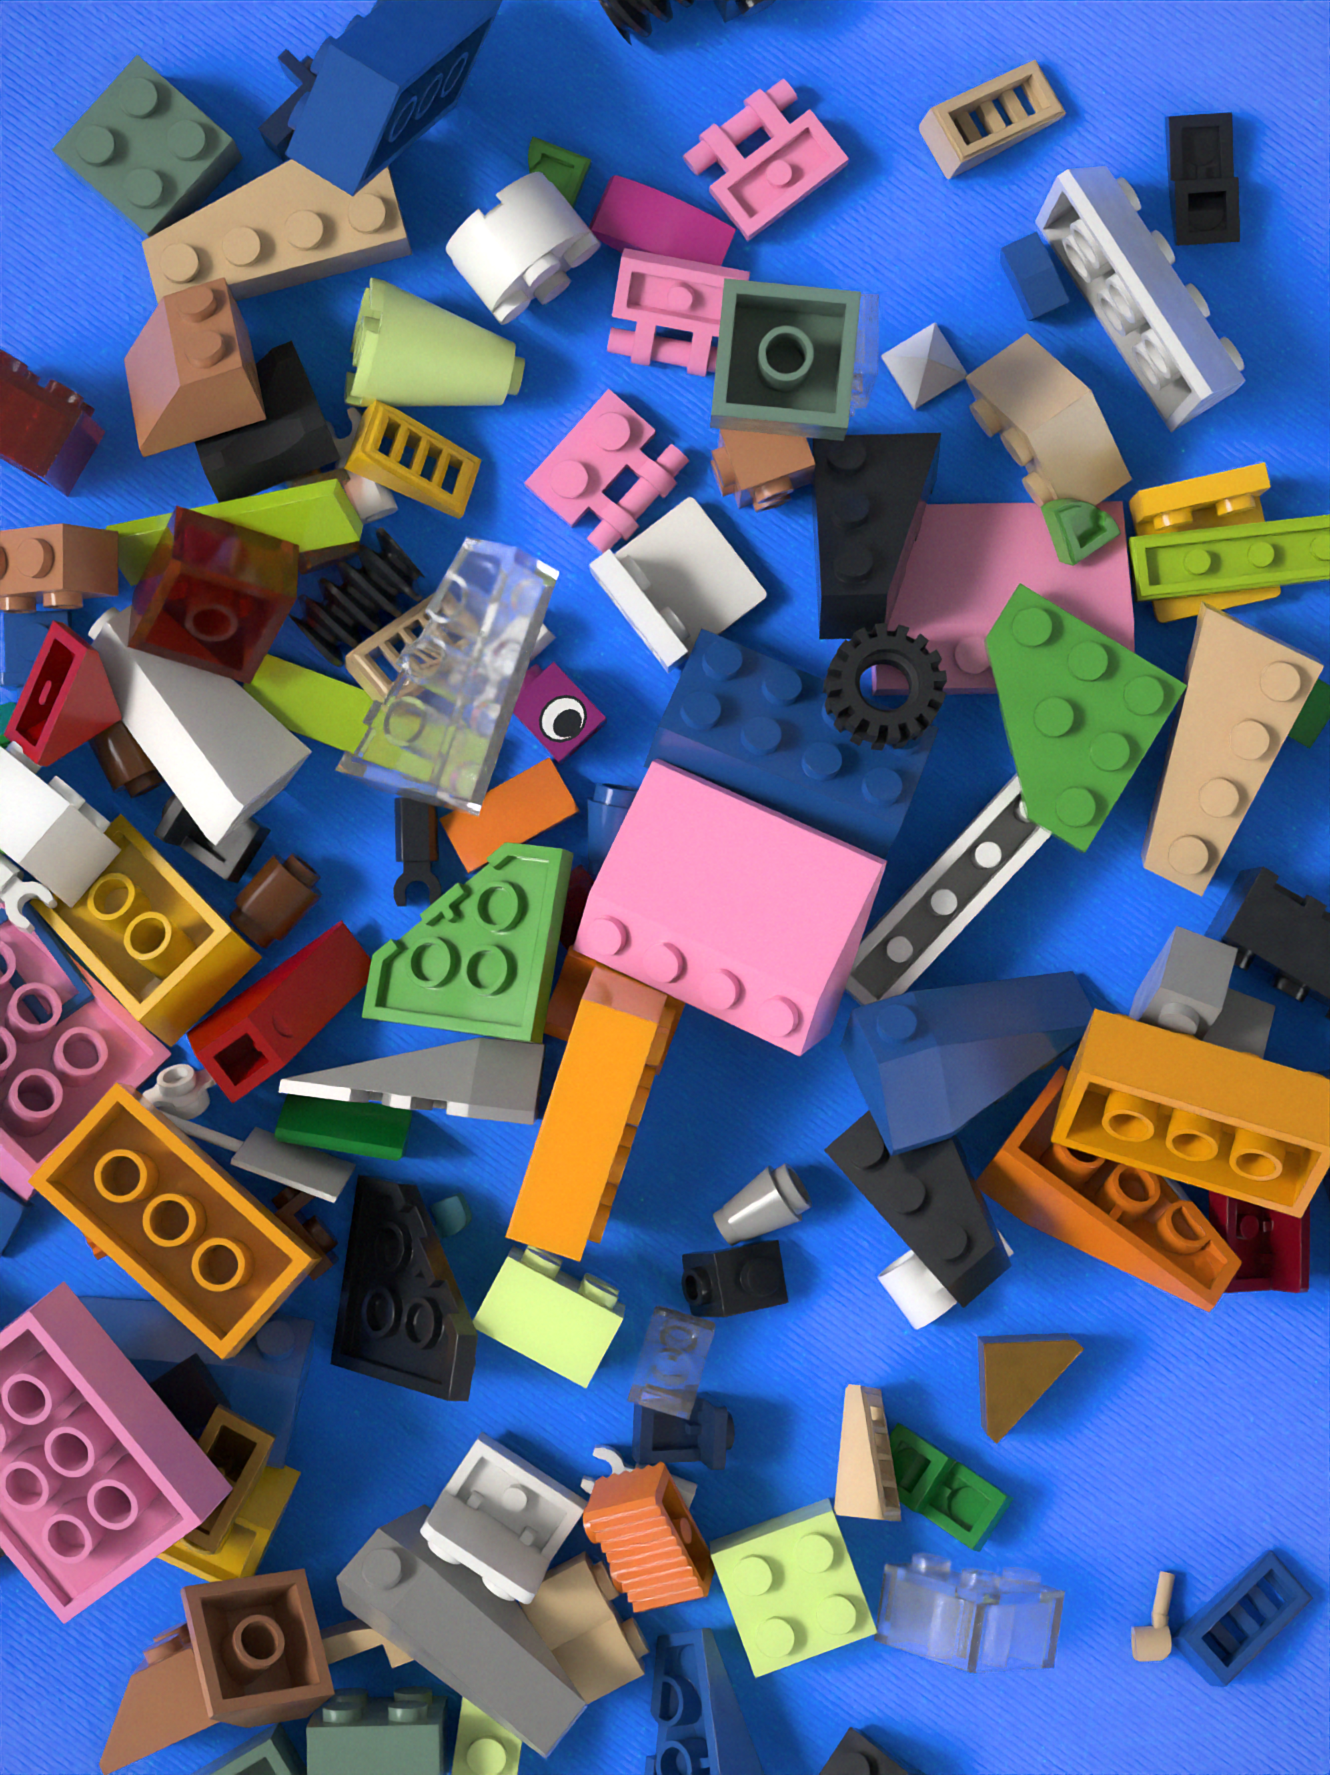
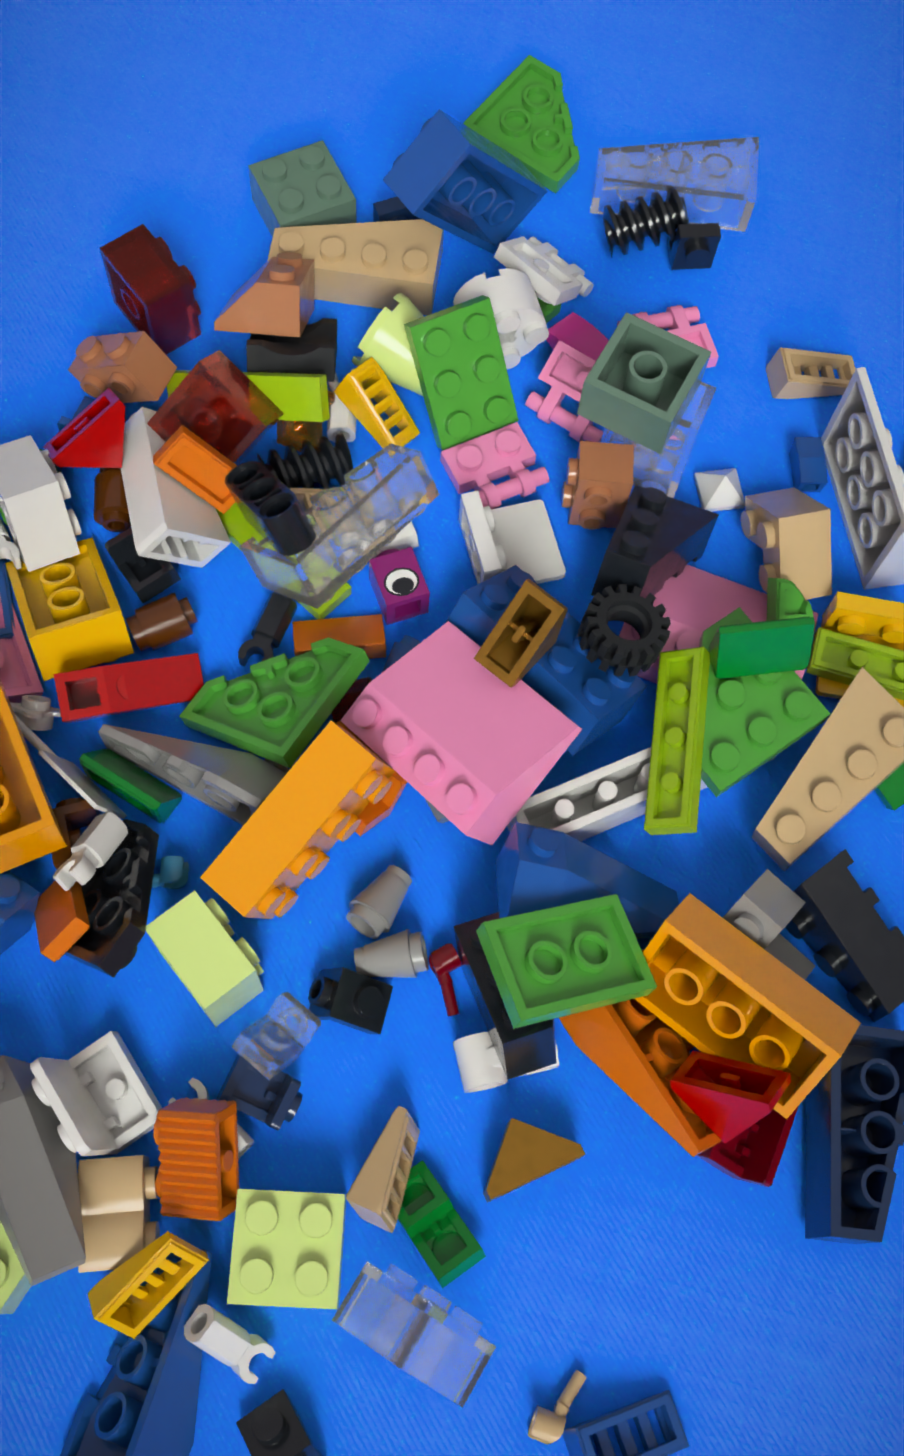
camera: 15 degrees right, 20 degrees down
(234, 681) = (197, 467): none -> orange tile
(351, 1247) = (91, 850): none -> white bar
(353, 1336) = (60, 919): none -> orange tile
(356, 714) = (270, 508): none -> black beam
(509, 368) = (462, 372): none -> bright green plate
(546, 123) = (549, 274): none -> white plate
(654, 1693) = (130, 1314): none -> yellow slope
(718, 1146) = (378, 904): none -> light grey cone
(762, 775) = (522, 634): none -> pearl gold slope
(769, 1710) = (225, 1341): none -> white bar
(824, 1184) = (442, 962): none -> dark red hand
(980, 1159) = (565, 960): none -> bright green plate
(1007, 806) = (677, 742): none -> lime tile
(1071, 648) = (762, 647): none -> green slope
(1222, 1220) = (728, 1092): none -> red slope

